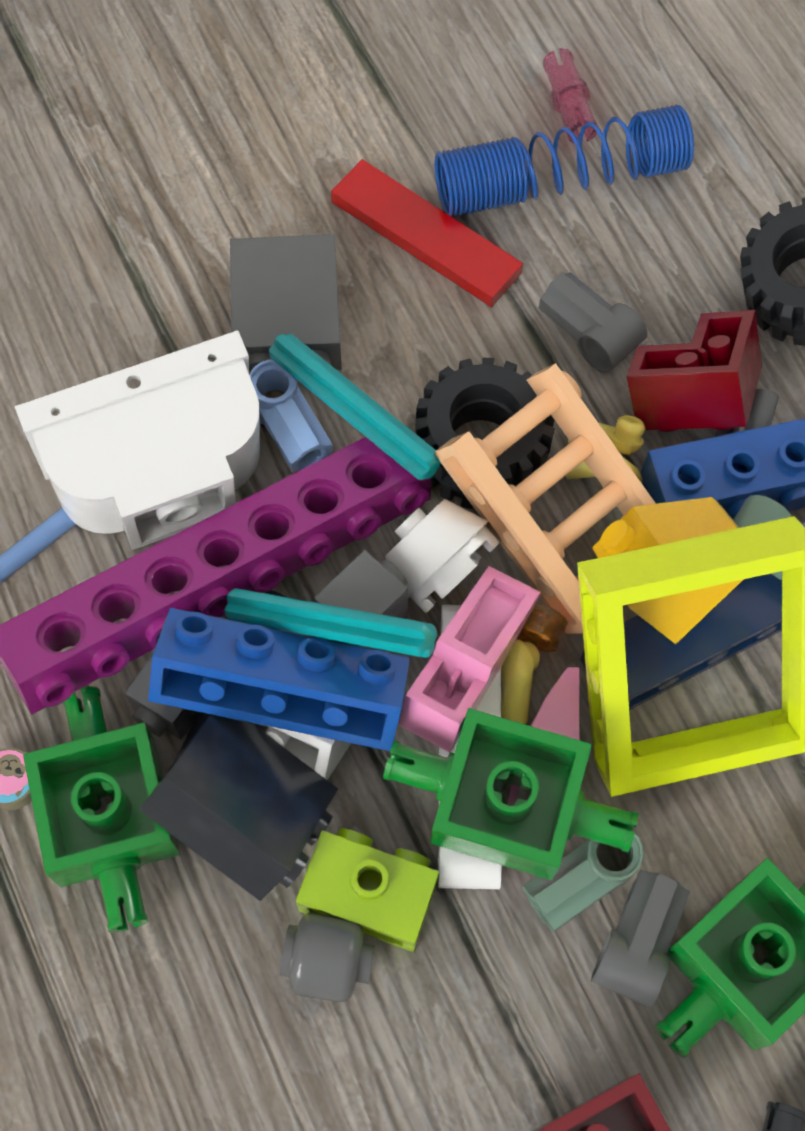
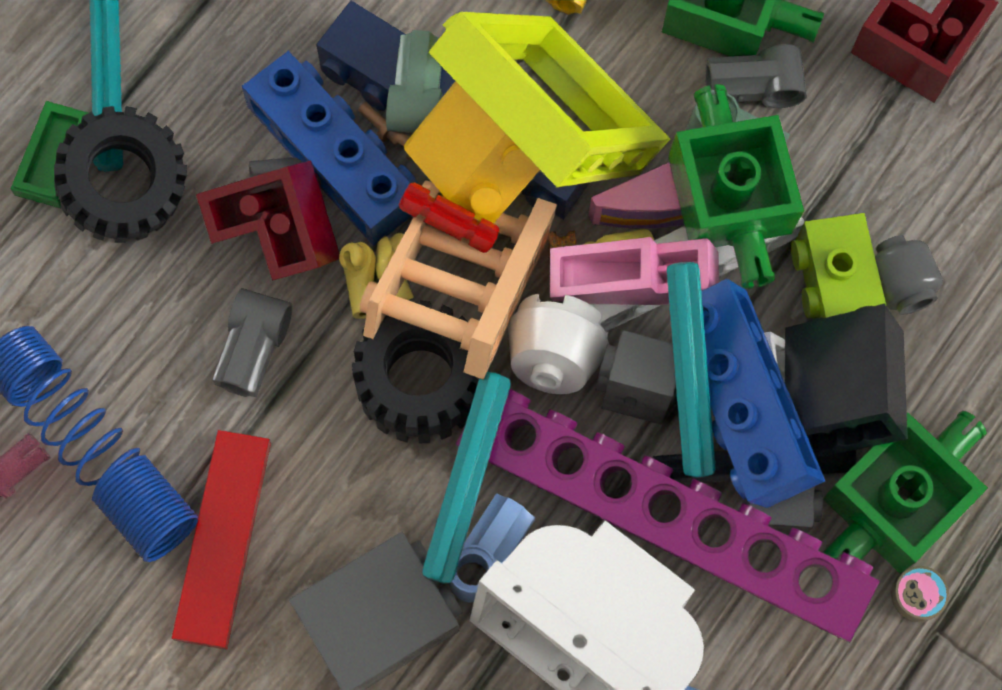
camera: 120 degrees left, 5 degrees up
(615, 499) = (449, 217): none -> red axle

